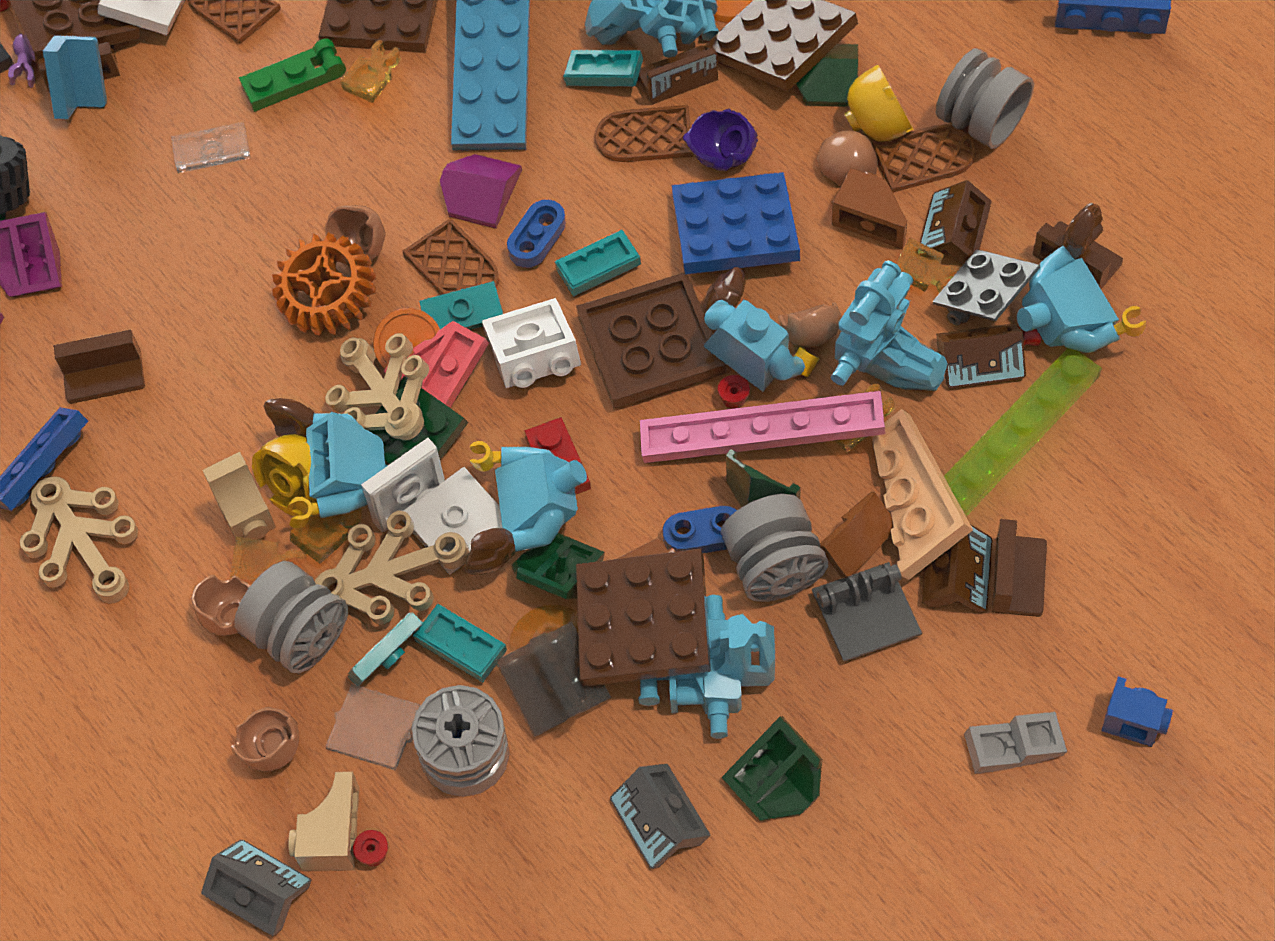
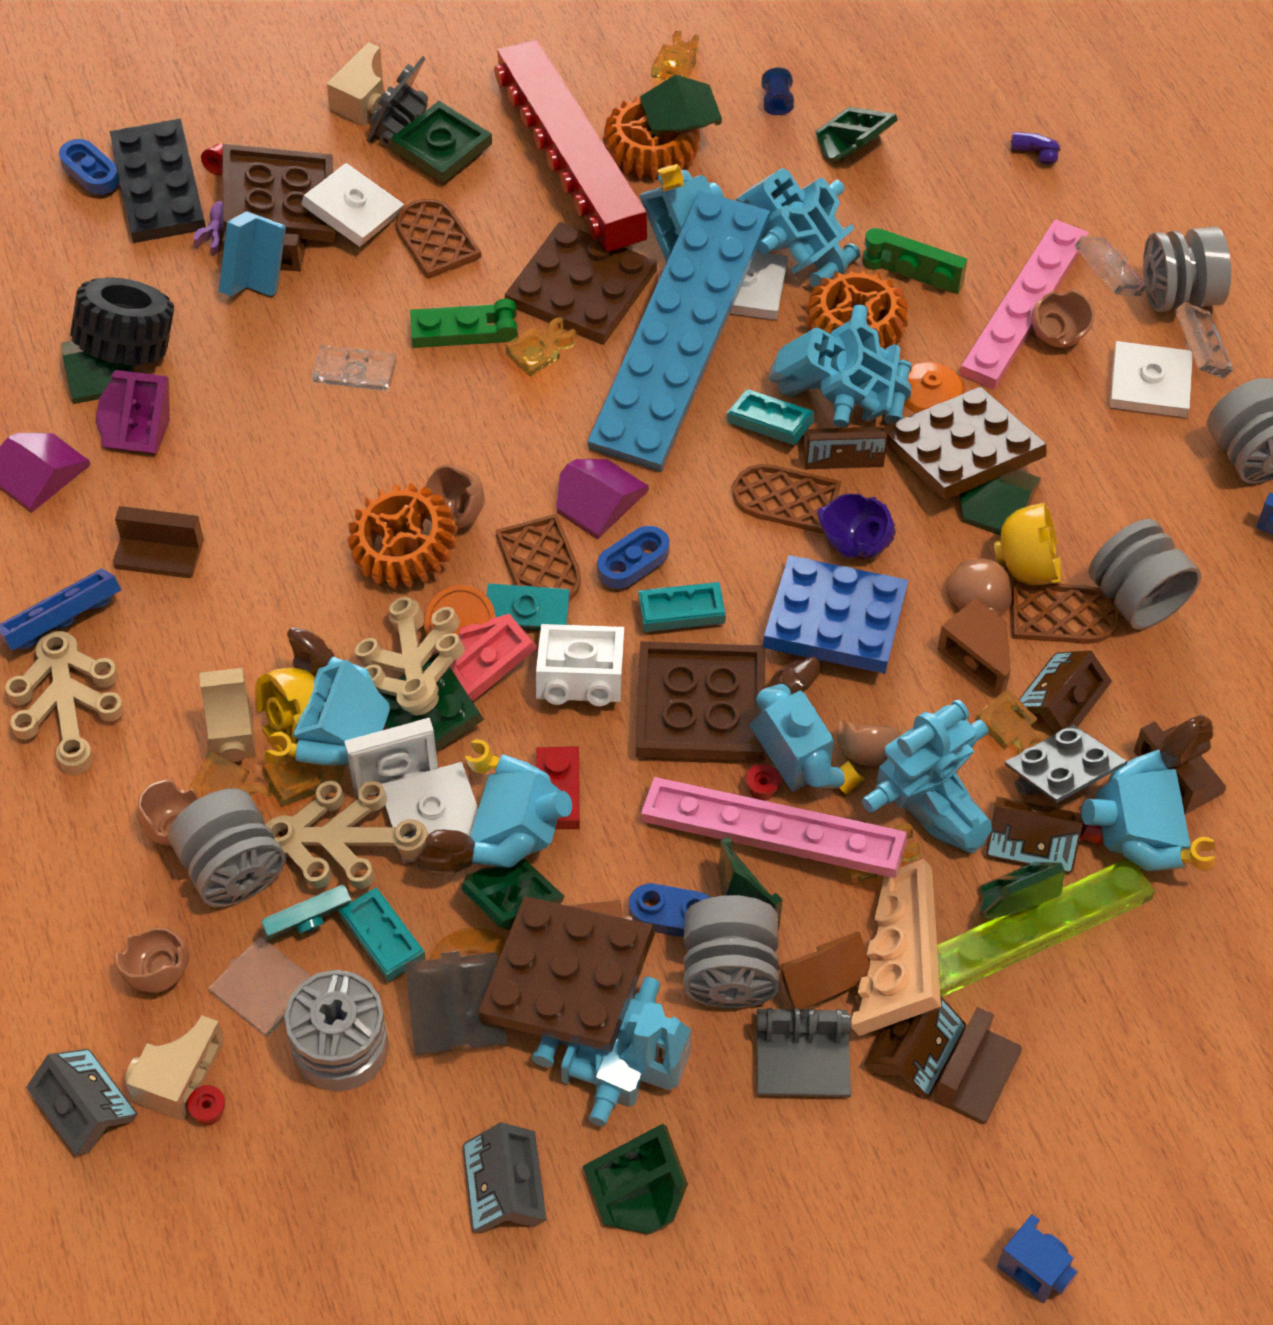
camera: 15 degrees right, 5 degrees down
(992, 405) = (1021, 889): none -> dark green slope
(1015, 744) = (899, 1246): light grey slope -> none

